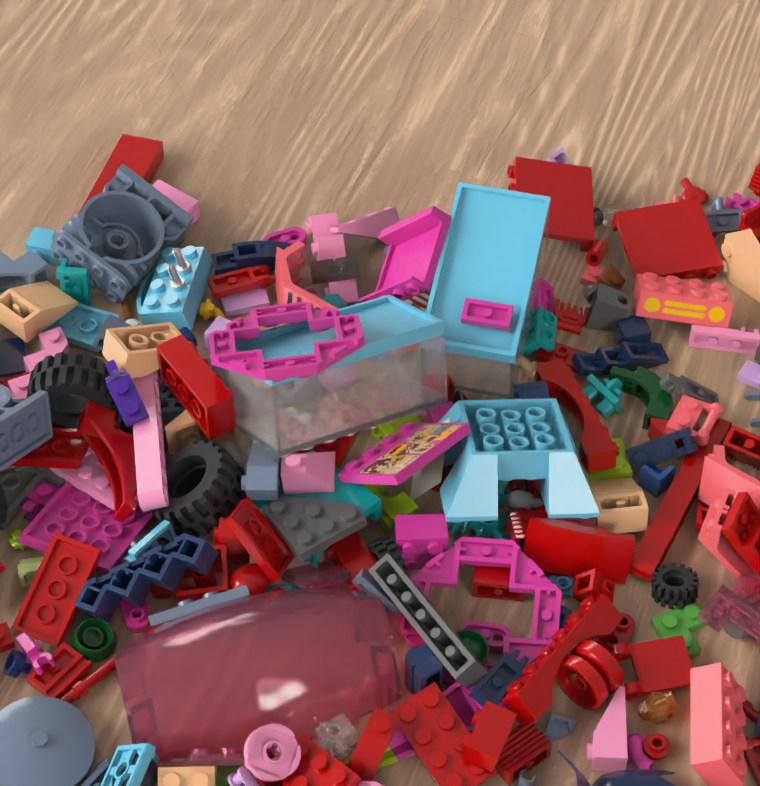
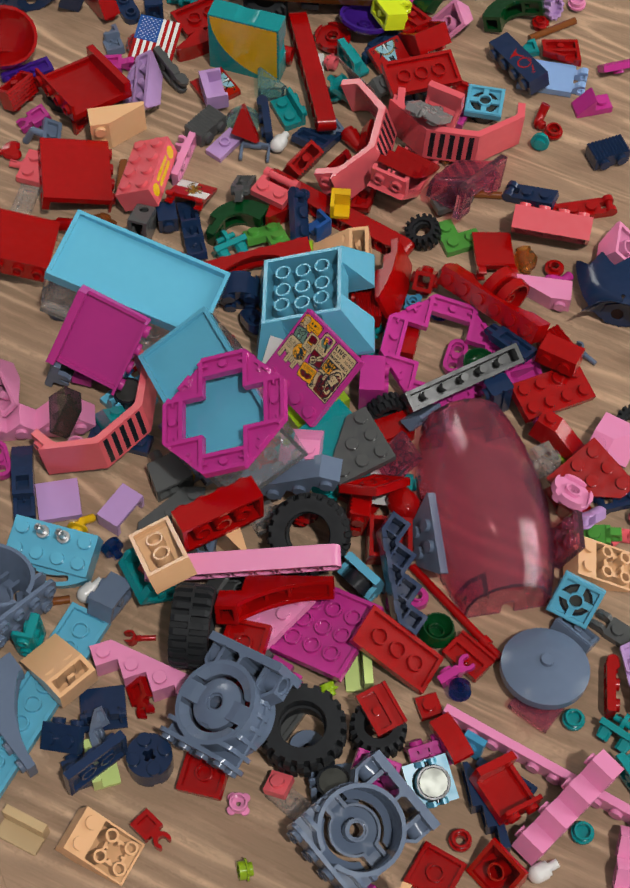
camera: 85 degrees left, 10 degrees up
(125, 395) = (221, 570): dark purple hinge -> none
(240, 281) = (52, 498): red hinge -> none
(487, 314) = (187, 282): dark pink plate -> none
(628, 428) = (271, 233): none -> bright green plate
(671, 348) = (192, 191): none -> flag
(684, 483) = (340, 203): none -> yellow panel

